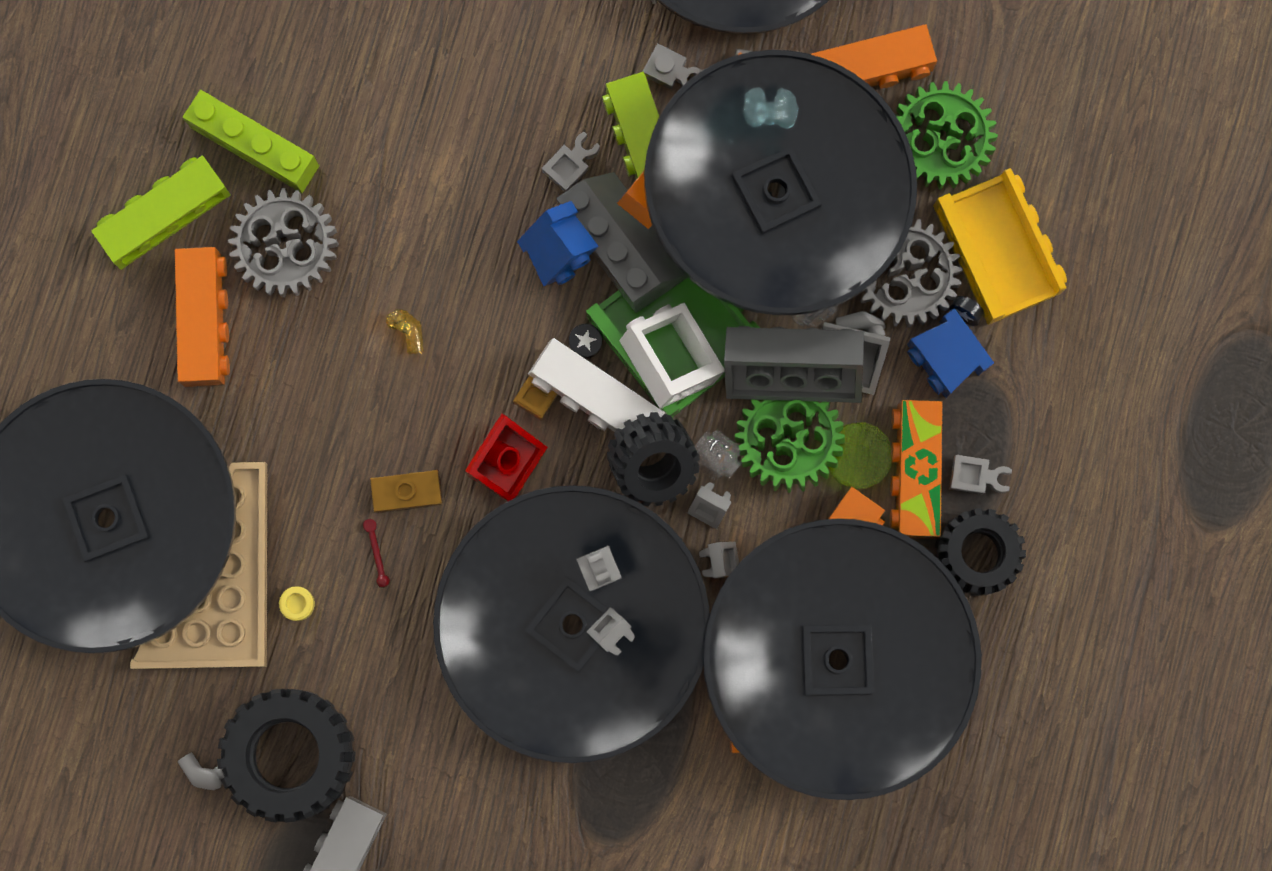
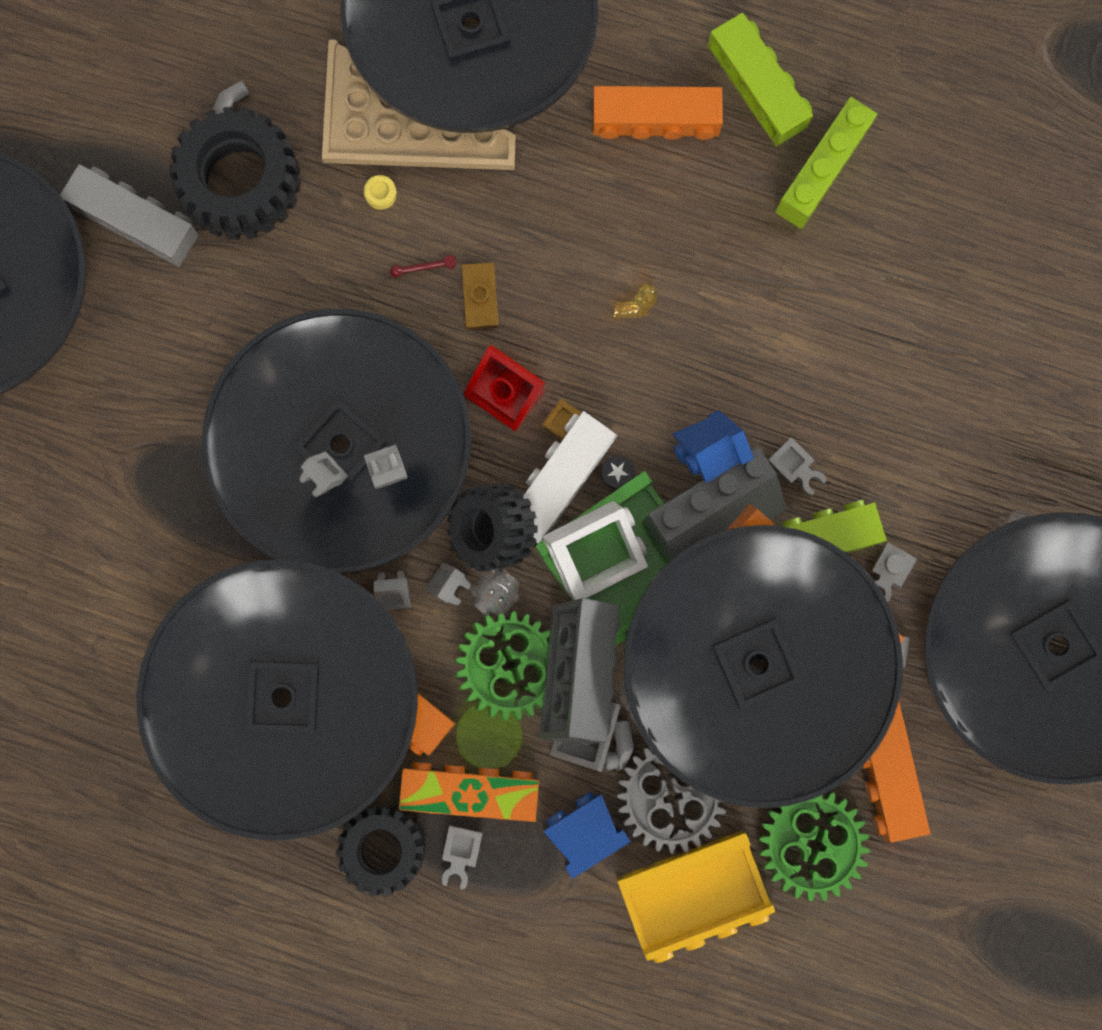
camera: 90 degrees right, 0 degrees up
(277, 214) = (697, 194): light grey gear -> none
(782, 111) = (836, 647): clear light blue piece -> none
(968, 309) = (629, 856): black tile -> none

